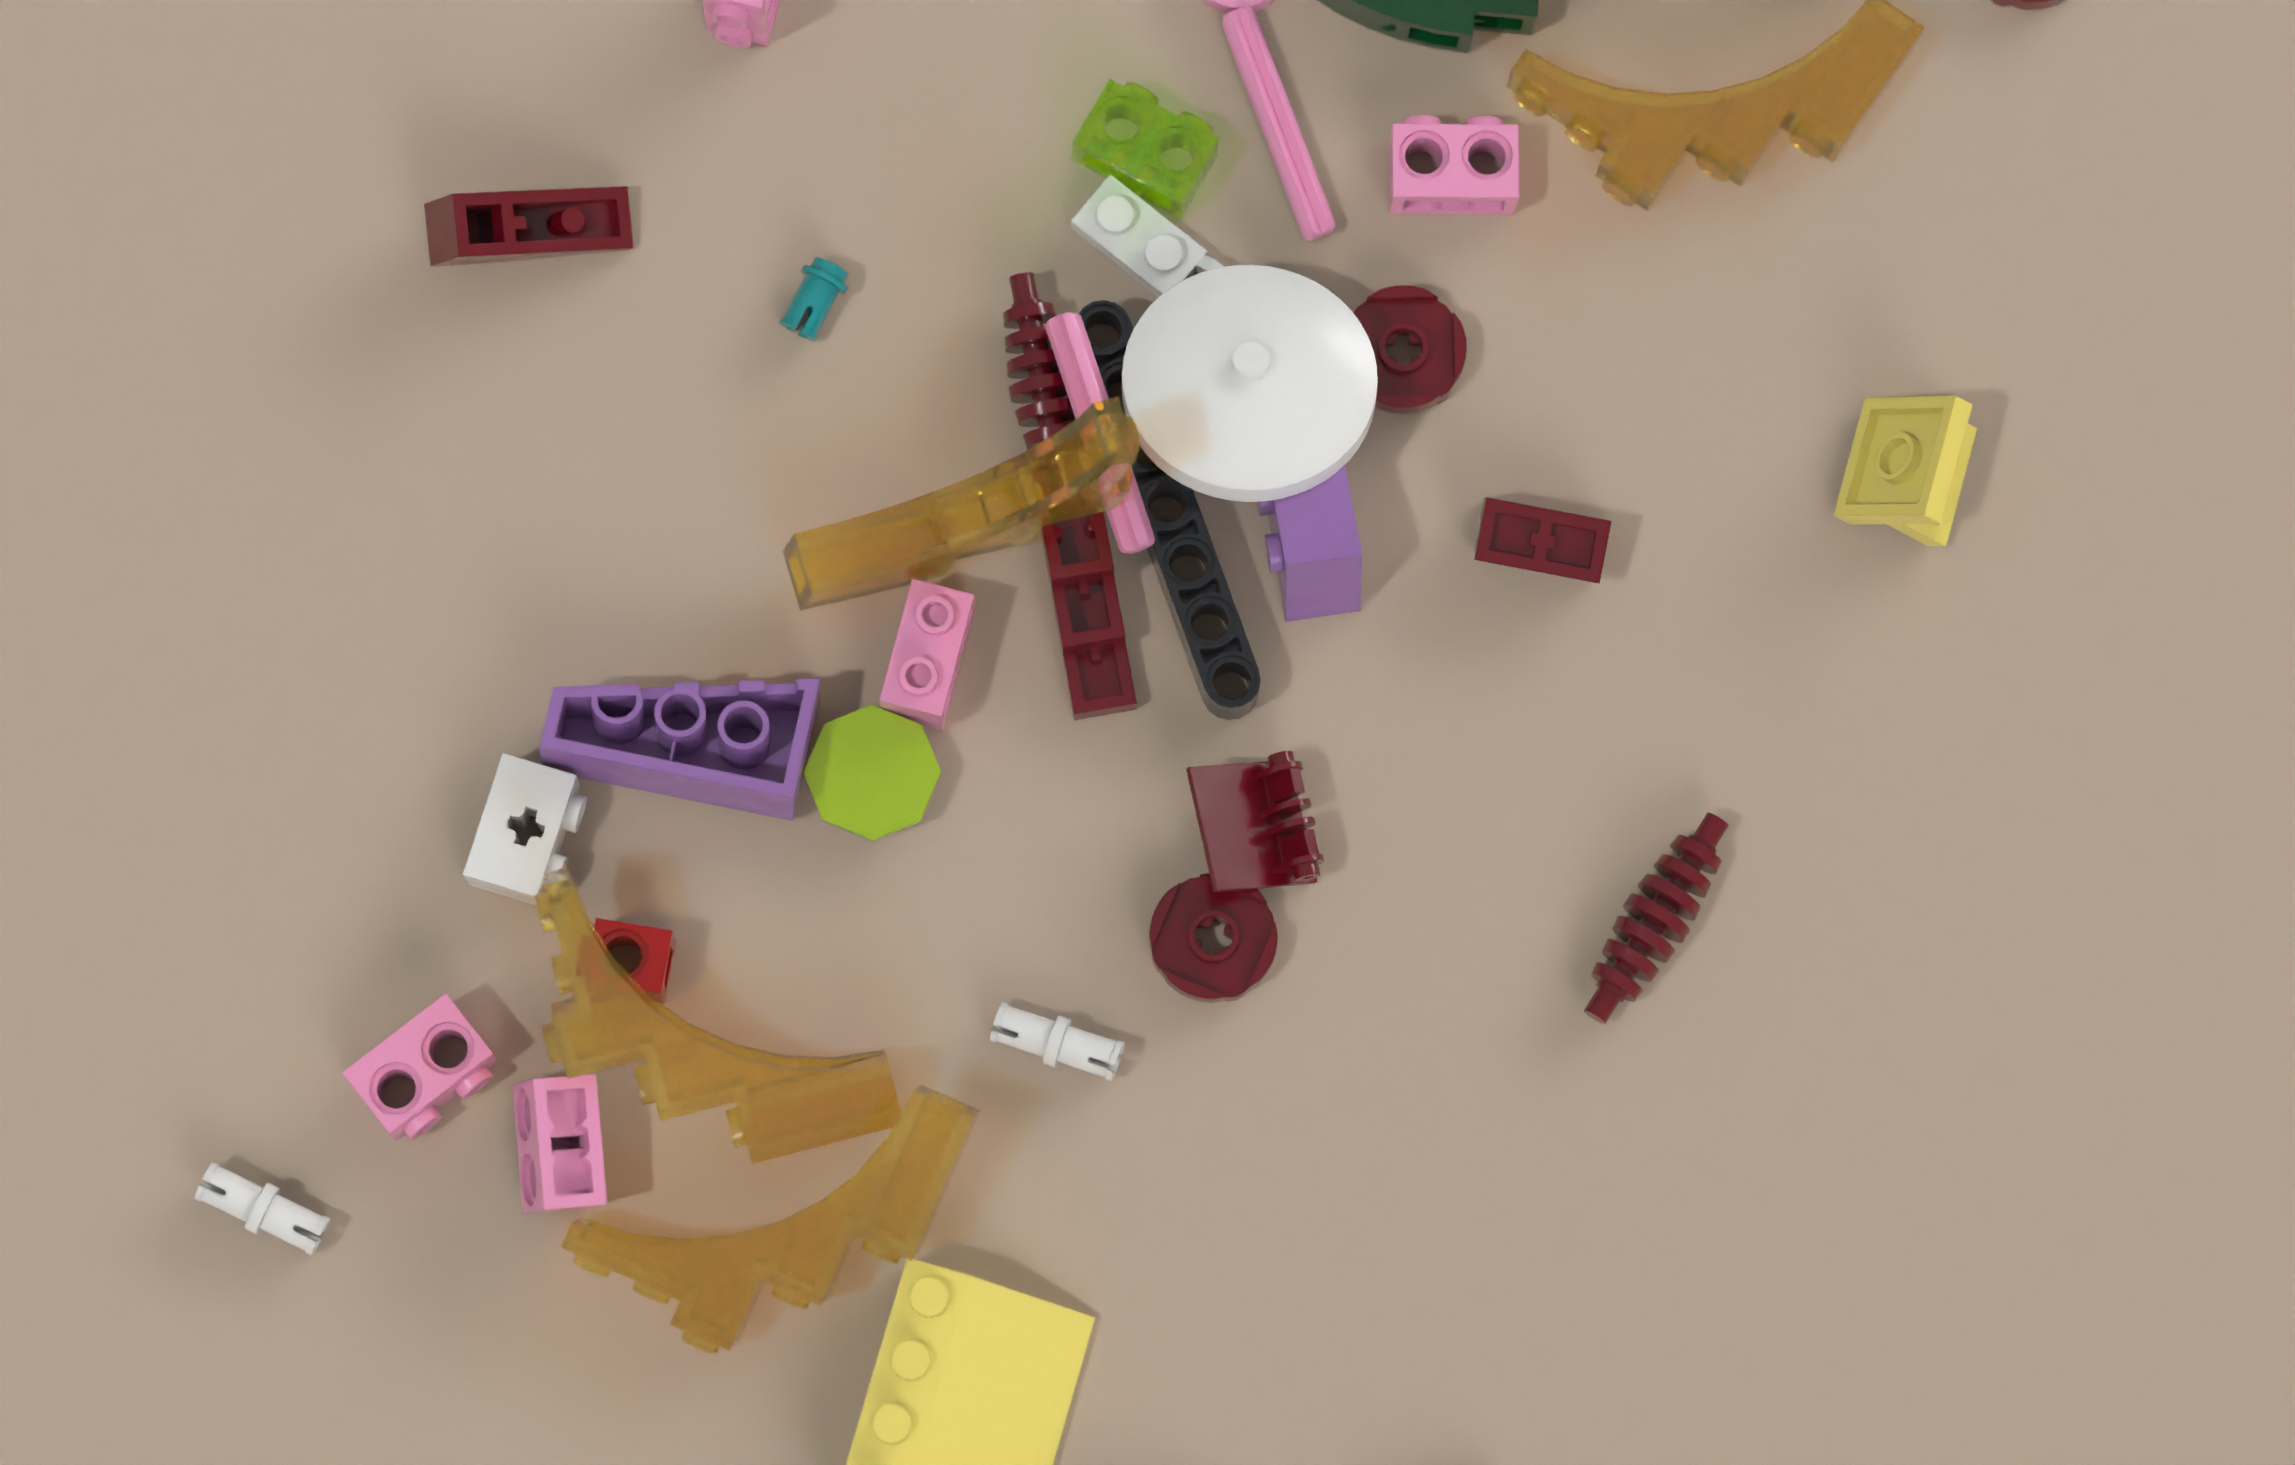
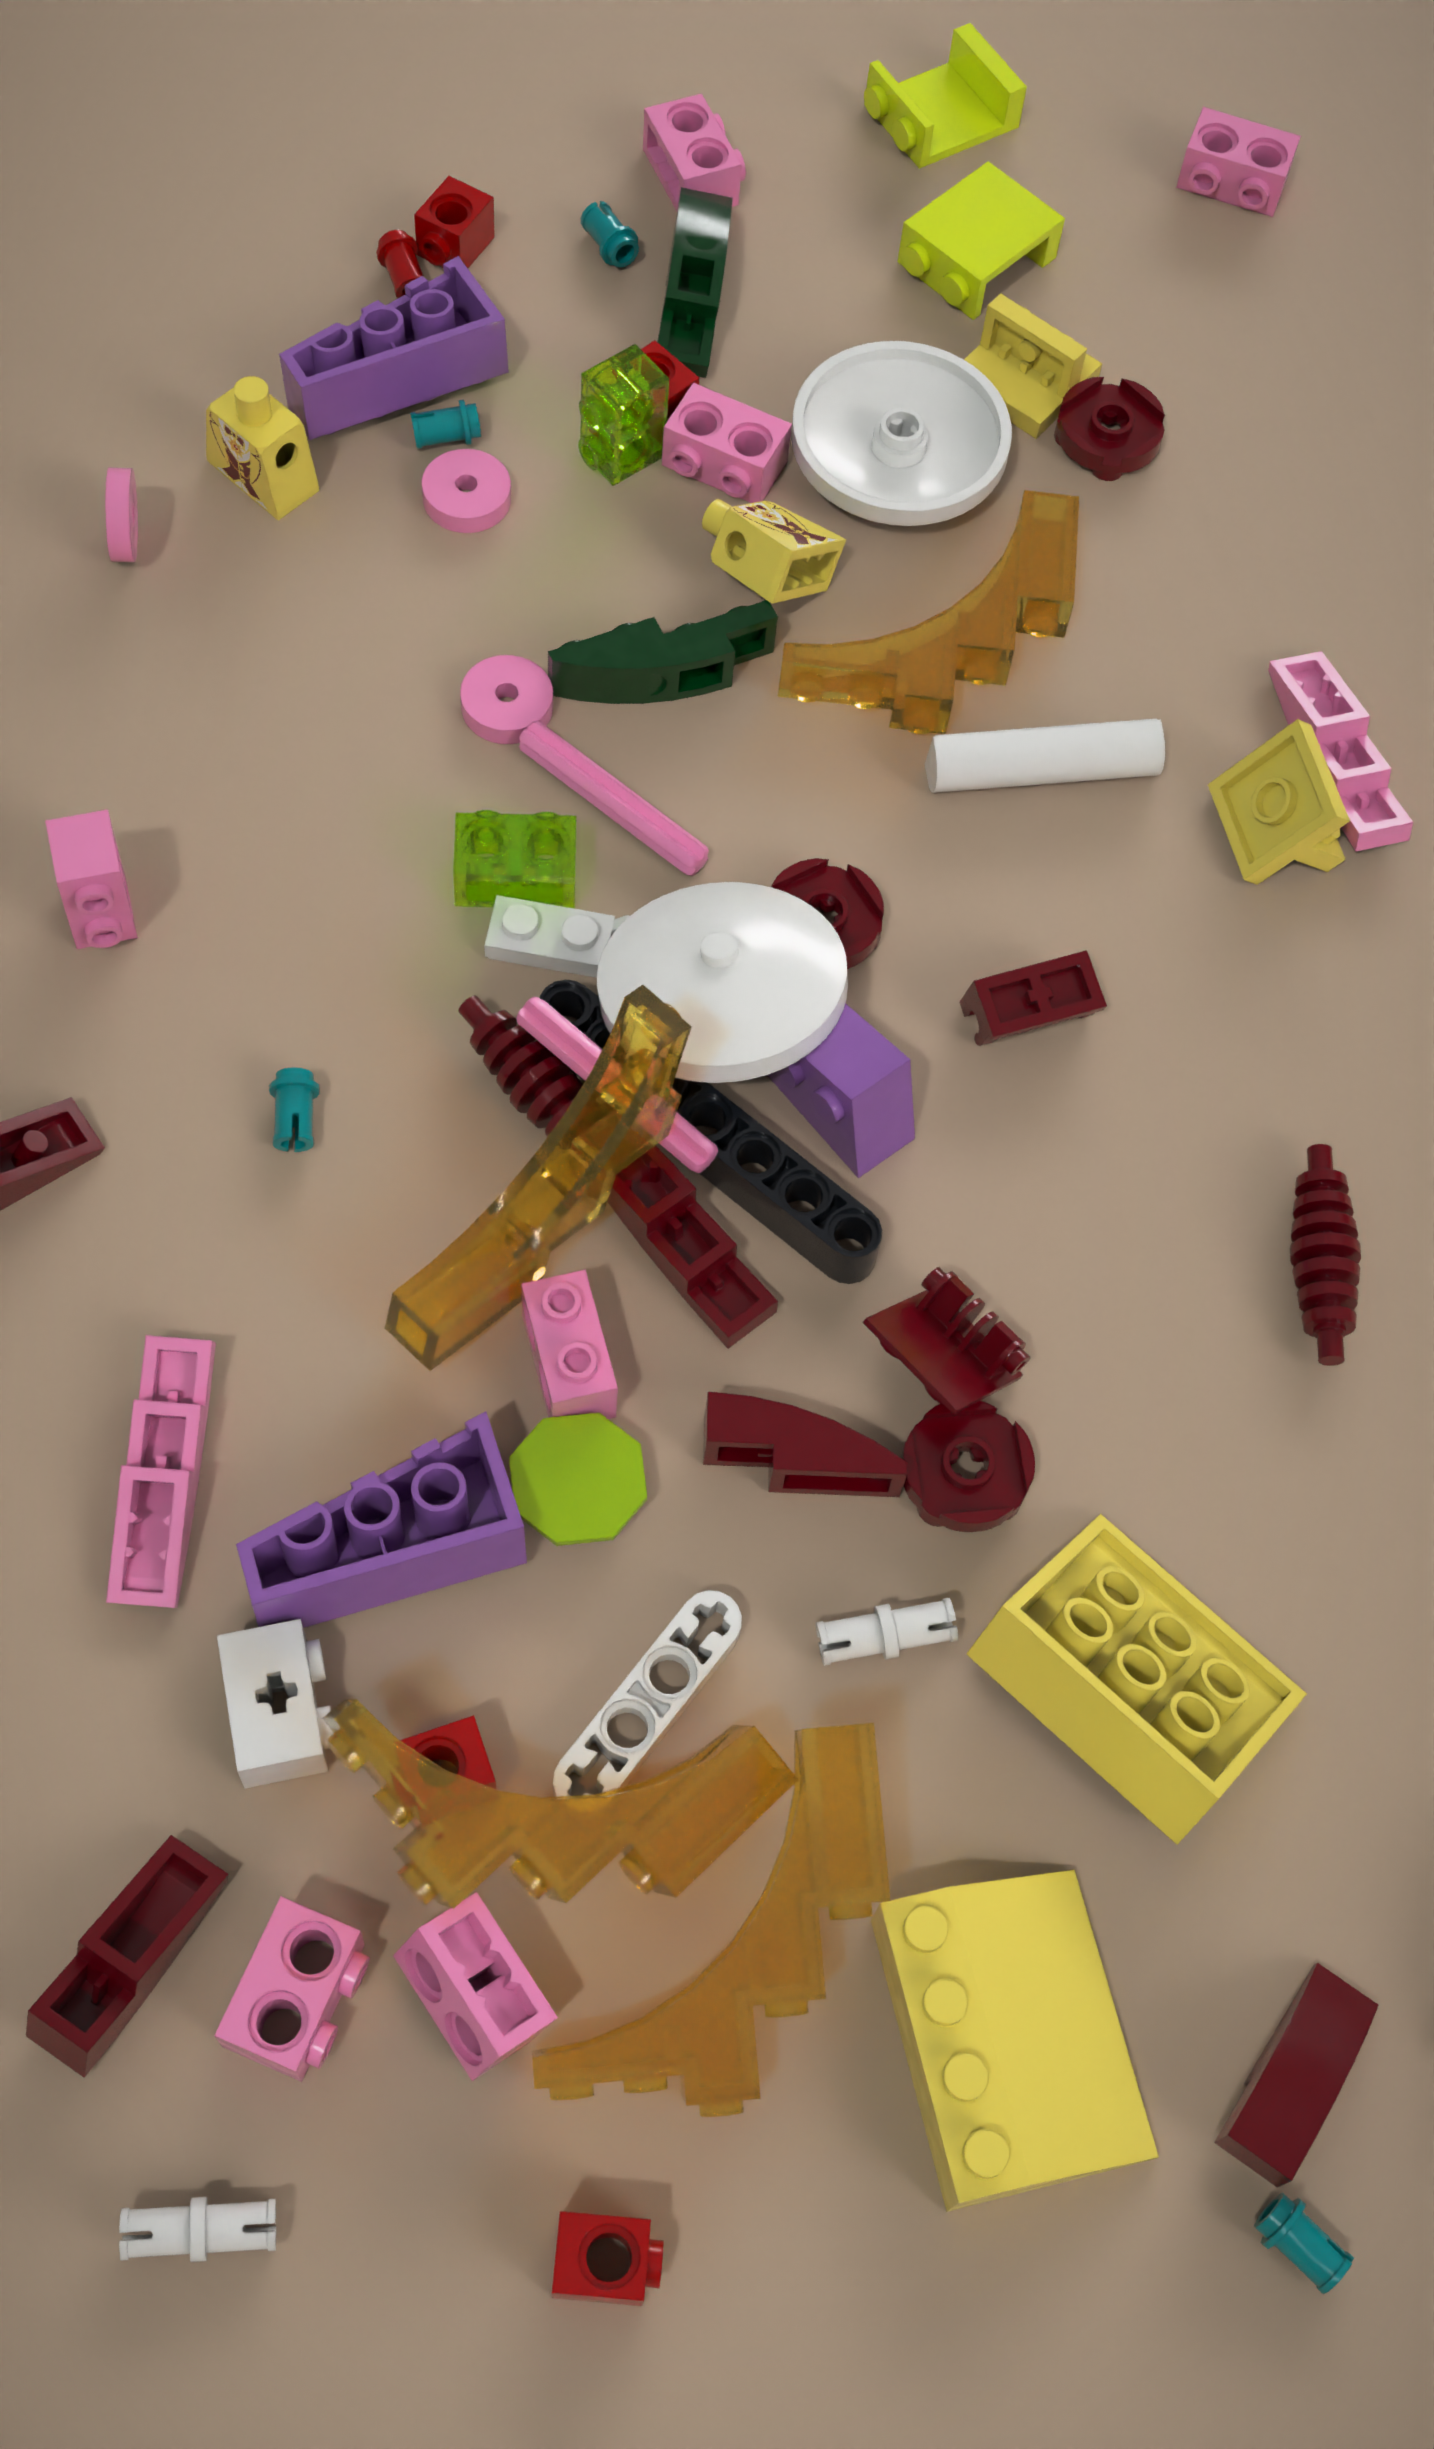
camera: 30 degrees left, 15 degrees down
(310, 969) = (124, 1956): none -> dark red slope
(525, 1384) = (575, 2237): none -> red brick
(534, 579) = (161, 1472): none -> bright pink slope
(822, 983) = (641, 1698): none -> white beam
(1072, 845) = (799, 1447): none -> dark red slope
(1245, 1190) = (1136, 1676): none -> light yellow slope
(1455, 184) = (783, 771): bright pink brick -> none
(1717, 292) = (1045, 755): none -> white brick
(2018, 428) = (1319, 696): none -> bright pink slope

